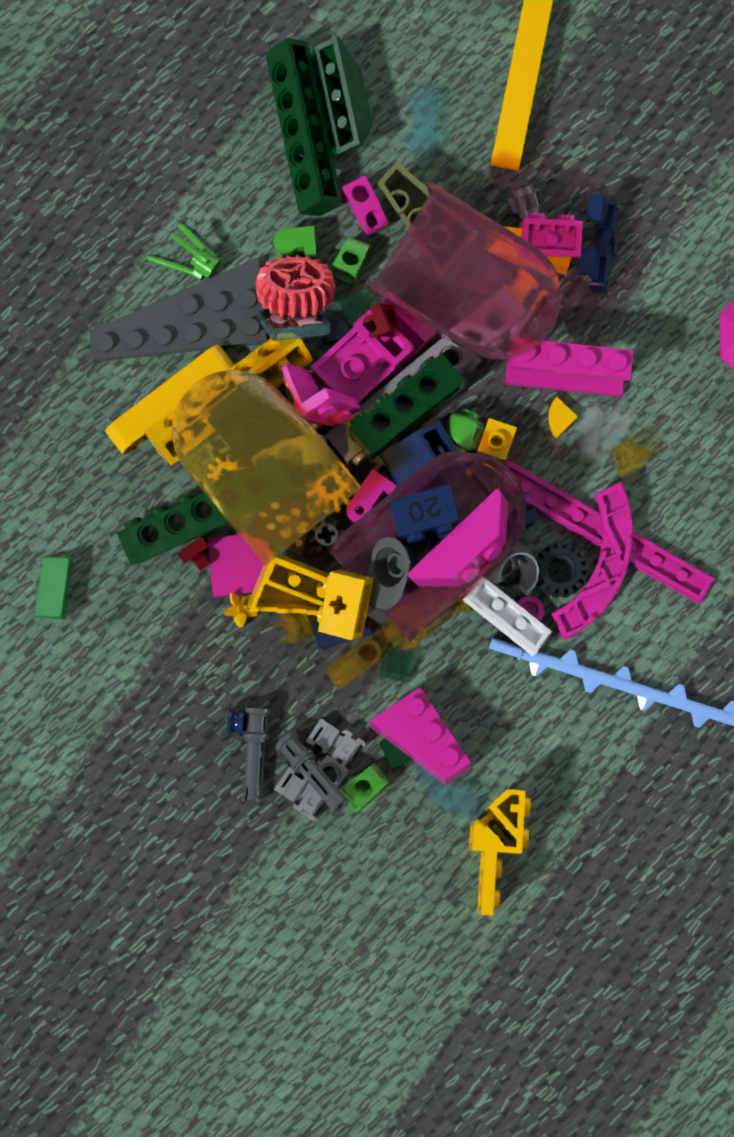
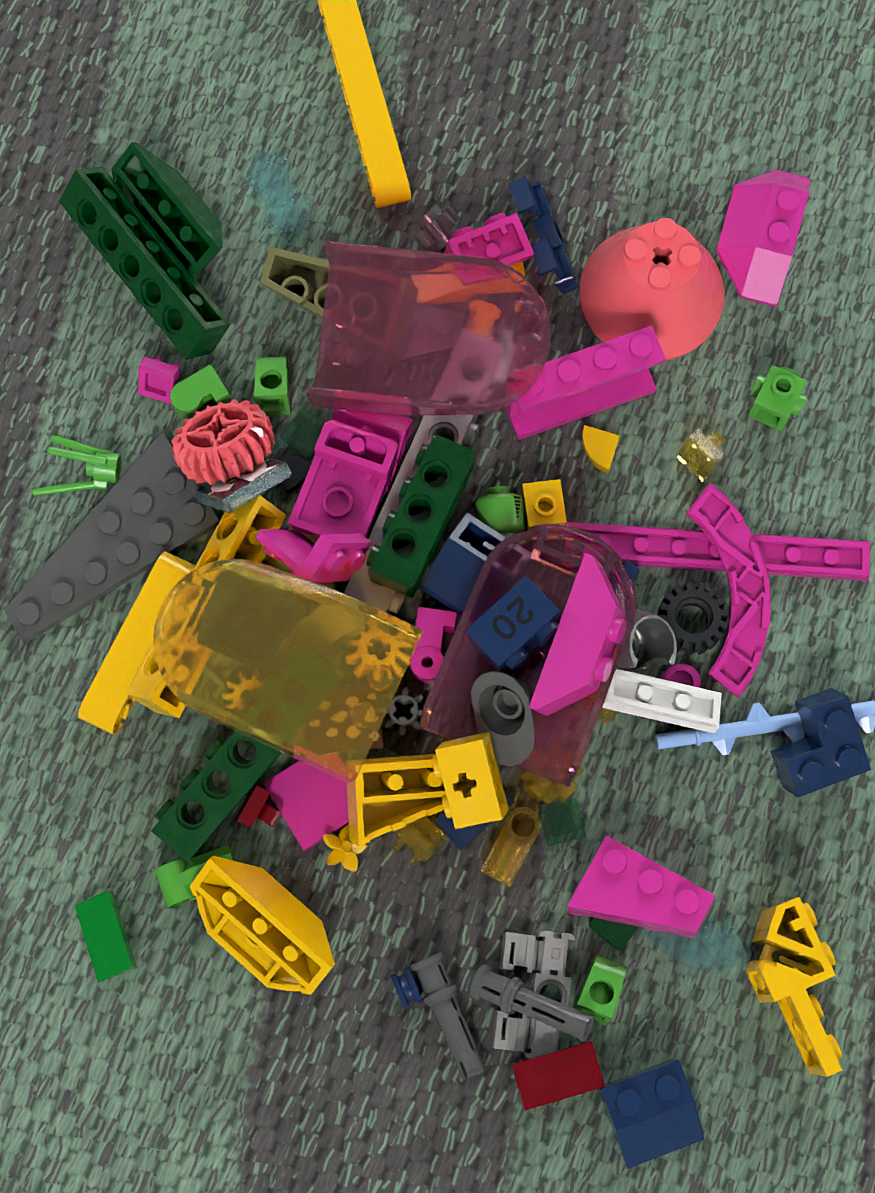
camera: 25 degrees left, 5 degrees down
(138, 578) = (178, 875): none -> bright green piece
(160, 631) = (262, 925): none -> yellow wedge
(272, 217) = (157, 378): none -> dark pink tile
(306, 827) = (558, 1075): none -> dark red hinge
(356, 884) = (652, 1112): none -> dark blue slope
(364, 205) = (257, 316): dark pink leg -> none
(385, 321) = (351, 426): dark red tile -> none
(598, 430) = (650, 440): clear wing -> none
(604, 708) = (829, 751): none -> dark blue brick
(661, 319) = (653, 279): none -> coral cone
(704, 443) = (777, 397): none -> bright green brick

